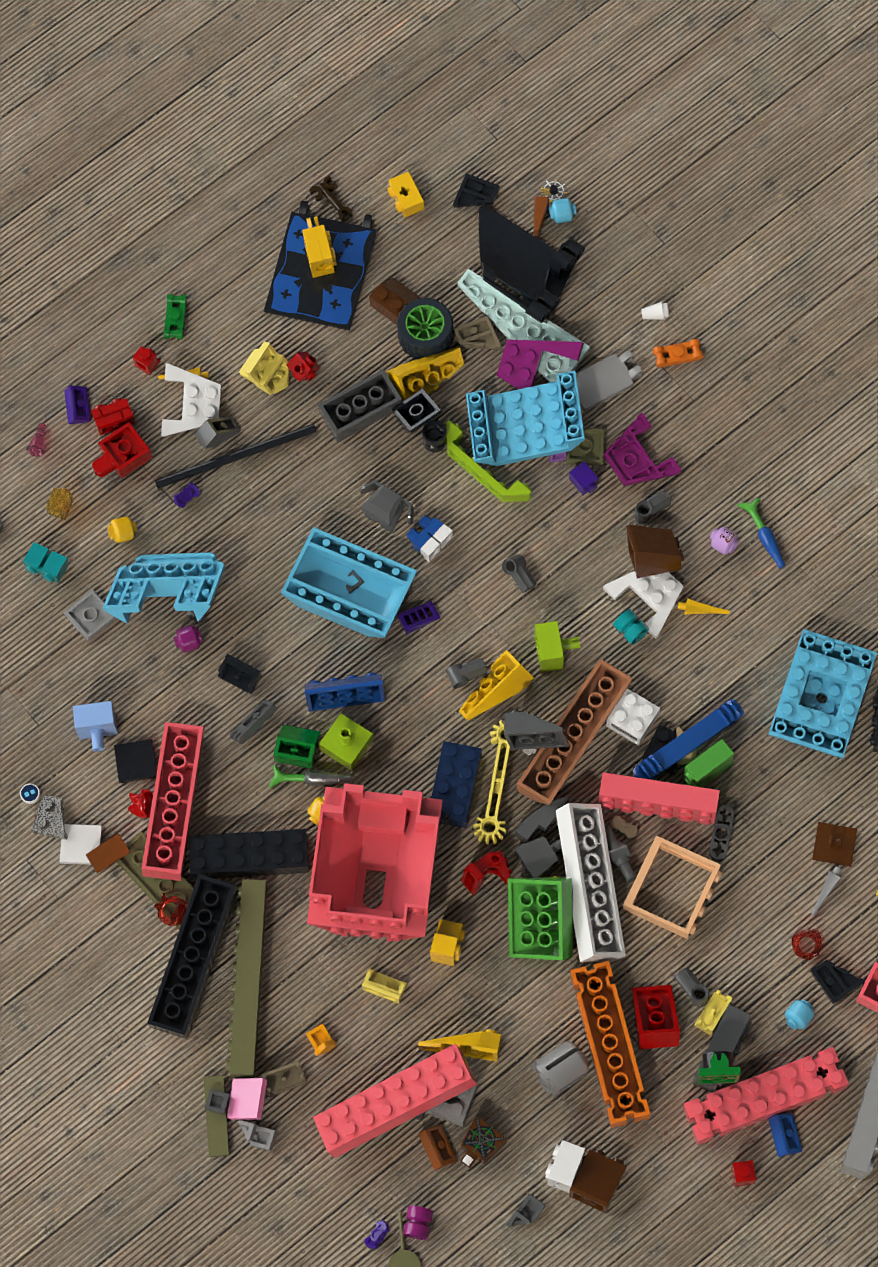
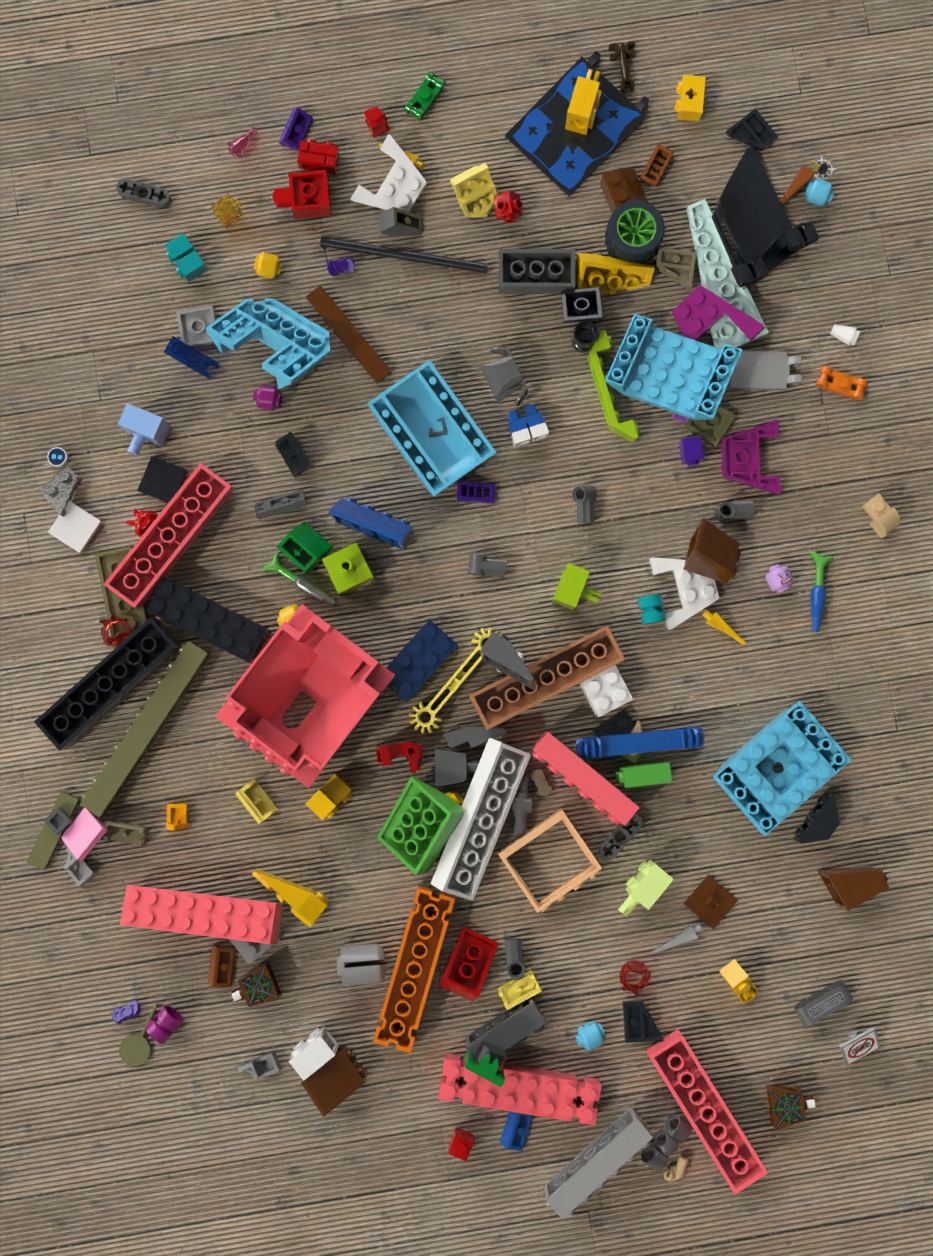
camera: 20 degrees right, 15 degrees up
(100, 643) = (190, 357): none -> clear blue plate
(107, 853) = (90, 550): dark orange slope -> none
(227, 548) = (348, 334): none -> reddish brown tile
(410, 249) = (663, 151): none -> dark orange slope
(504, 681) = (512, 594): yellow wedge -> none
(768, 859) = (645, 887): none -> yellowish green brick
(781, 440) = (883, 516): none -> tan brick

